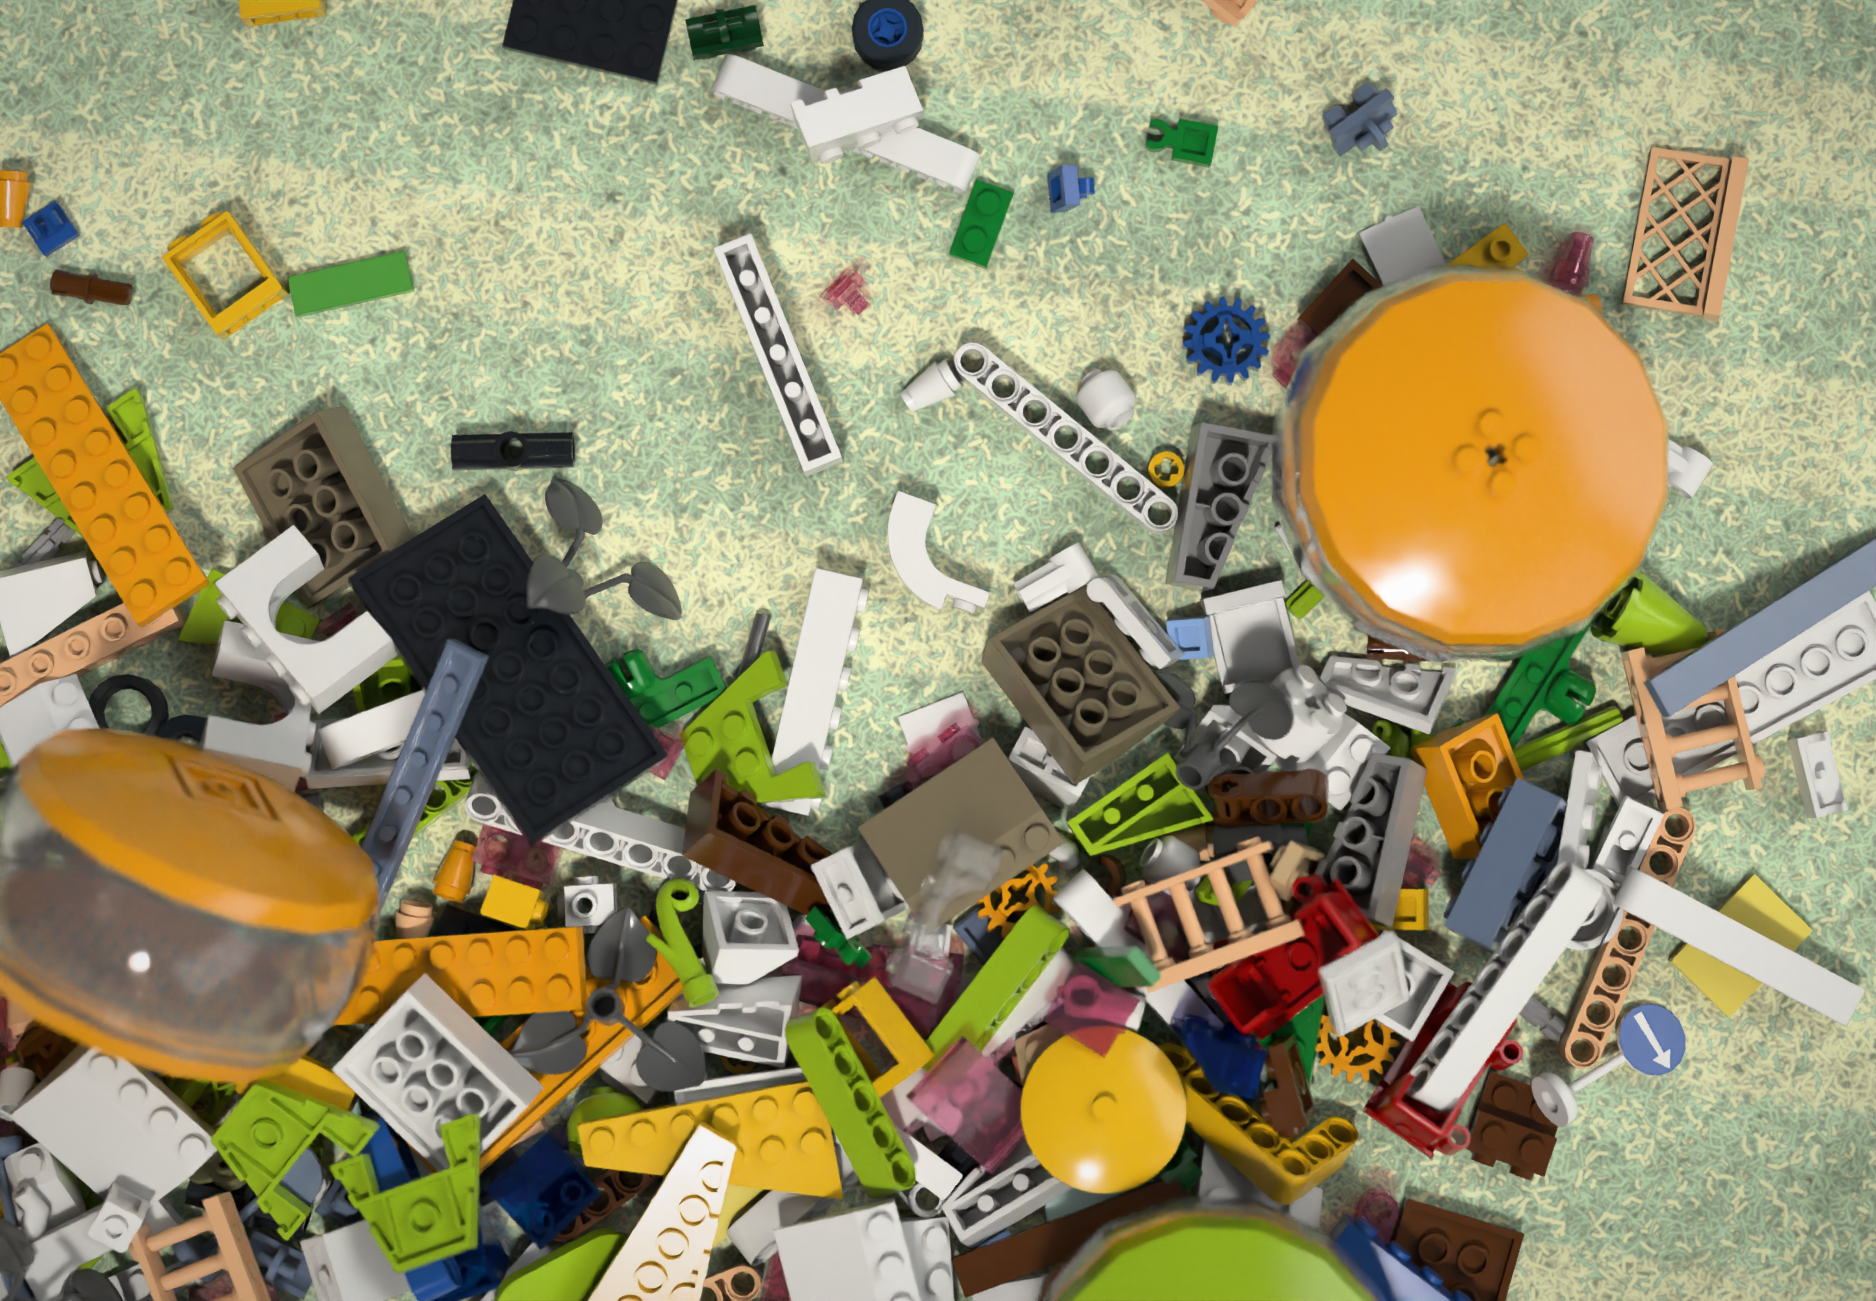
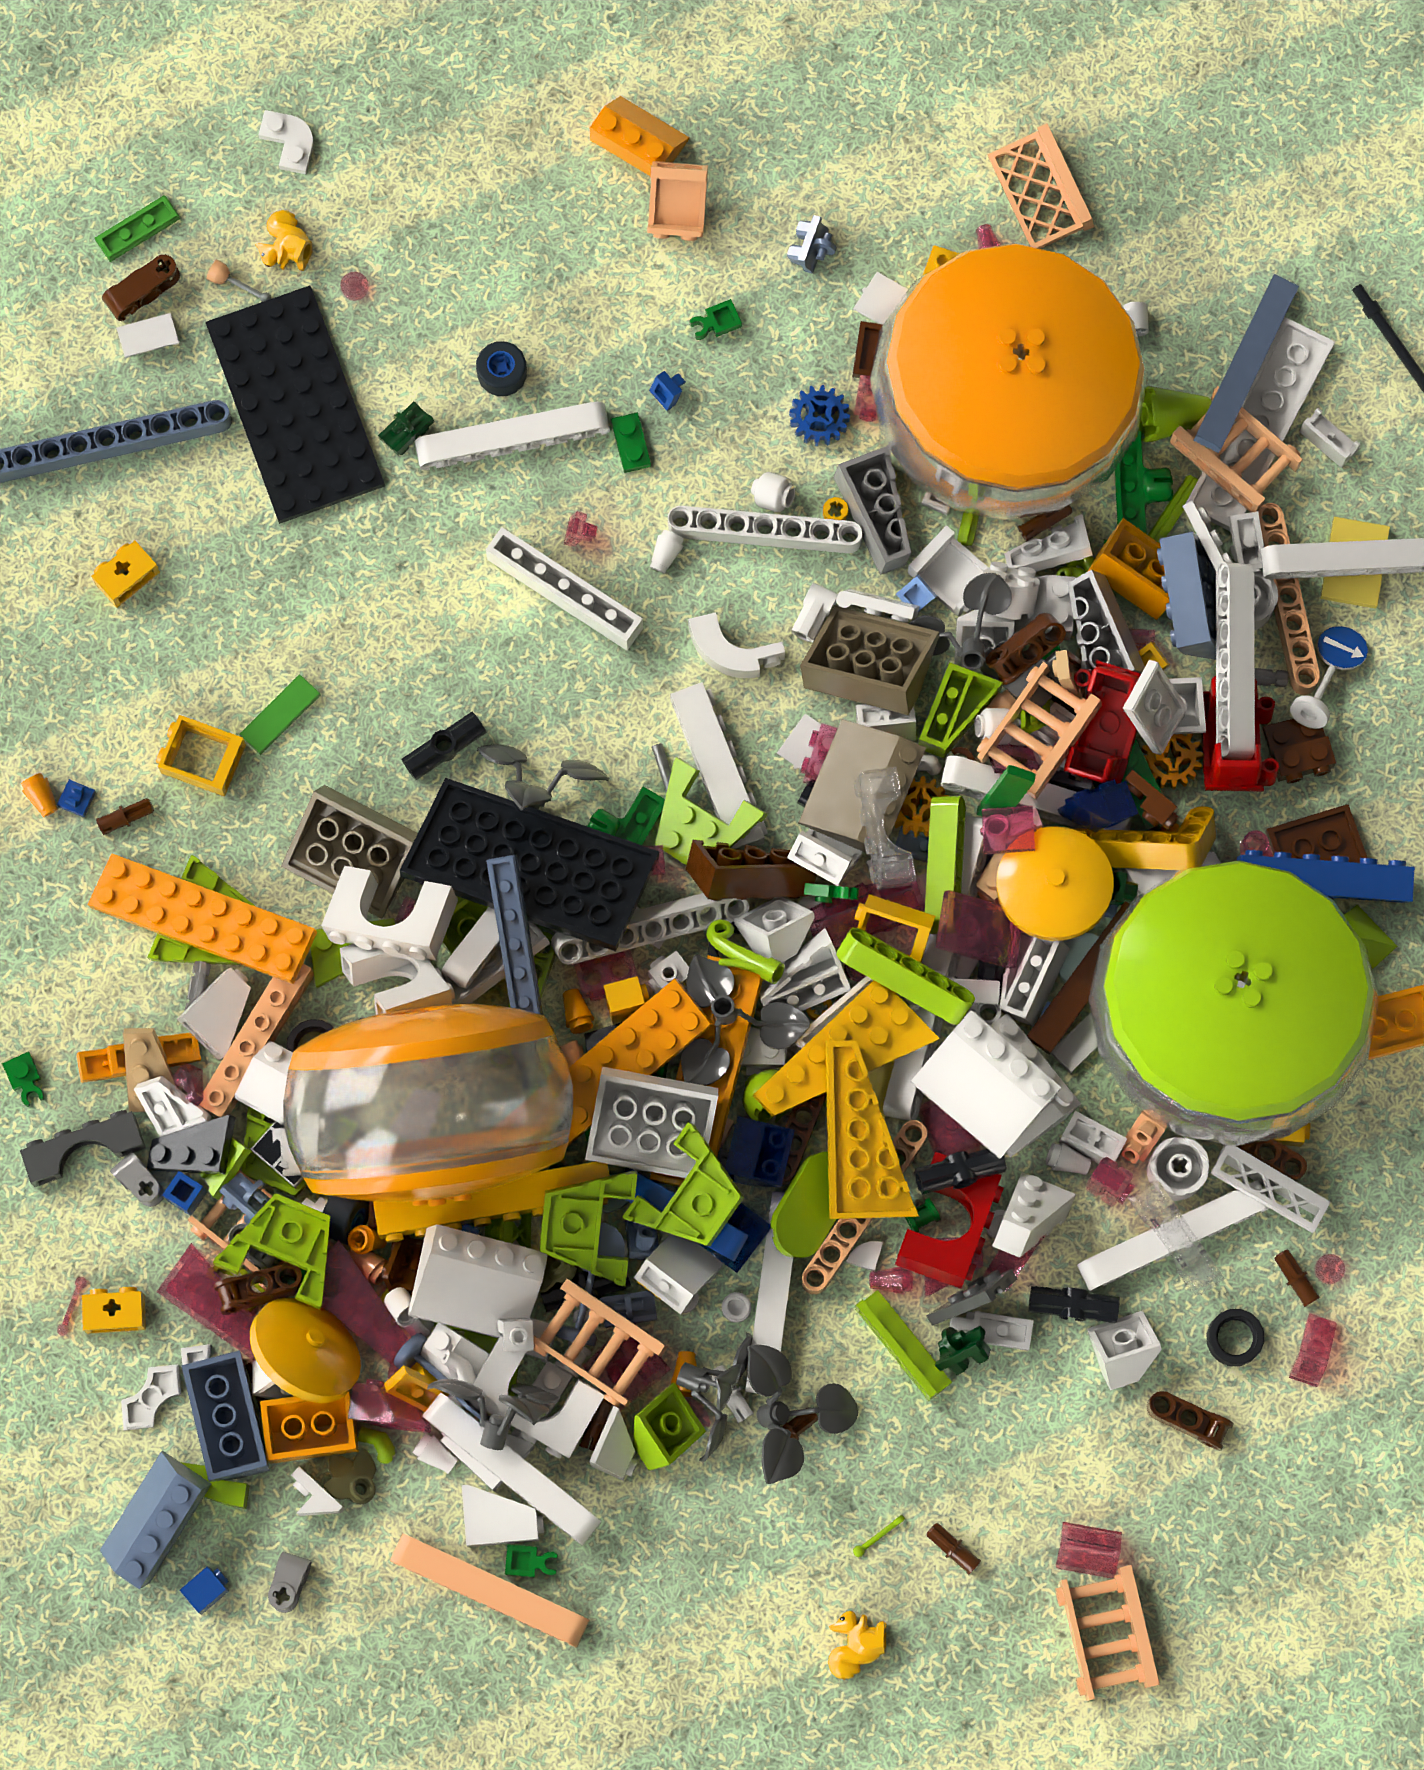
camera: 35 degrees left, 10 degrees down
(858, 115) = (518, 421): white wedge -> none

